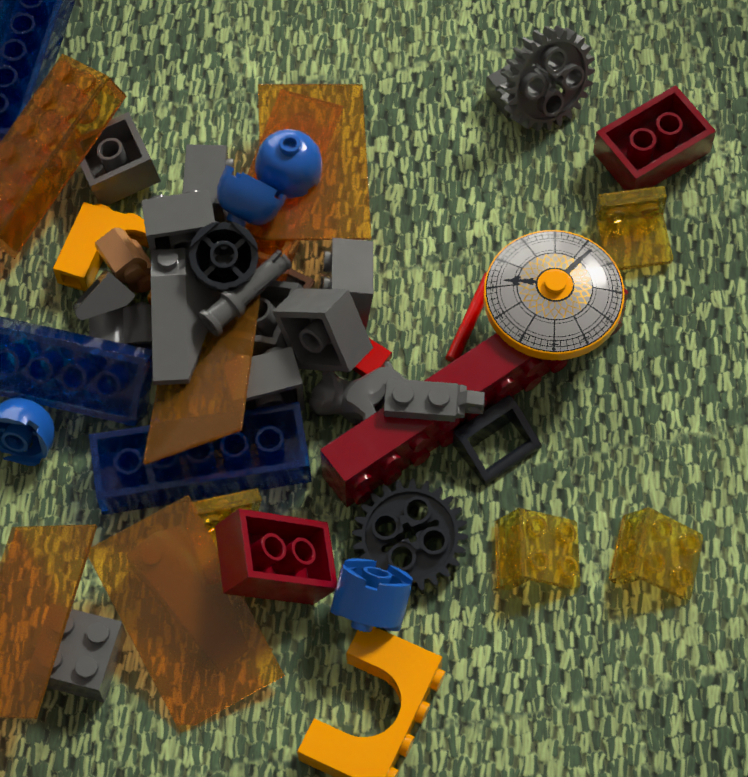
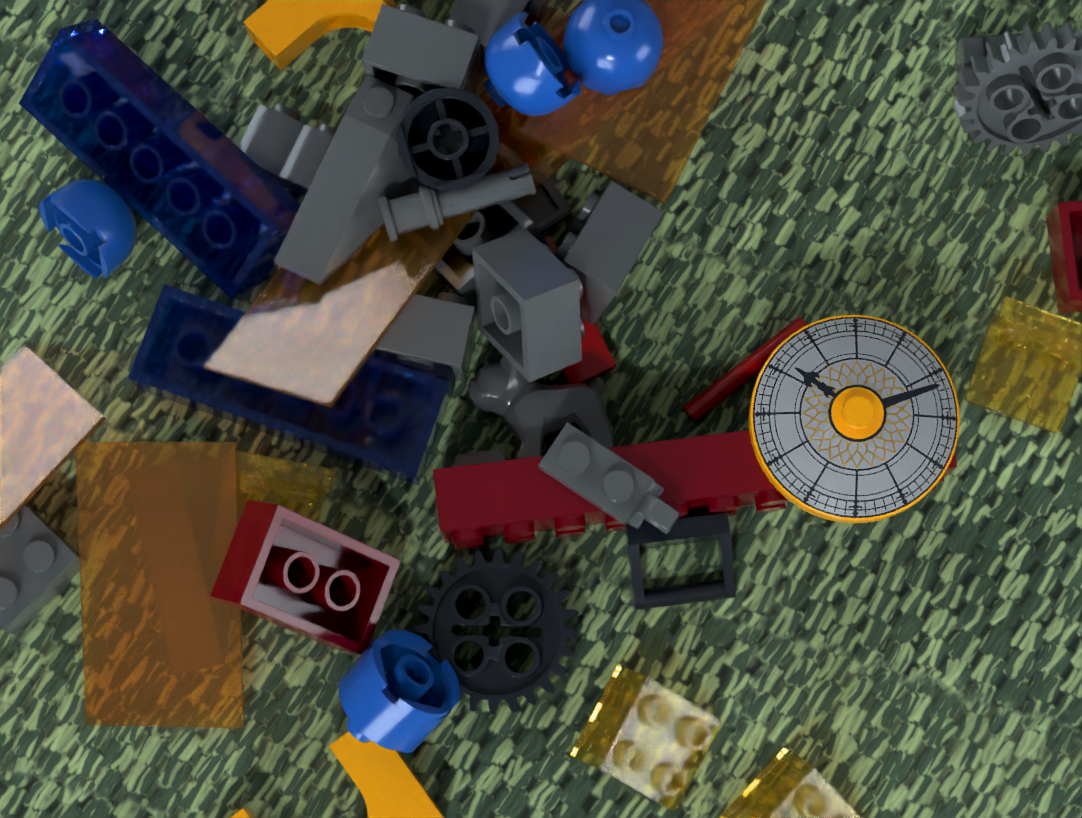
camera: 30 degrees right, 15 degrees up
(102, 296) = (285, 98): dark grey tile -> none
(126, 259) = (335, 58): medium nougat brick -> none

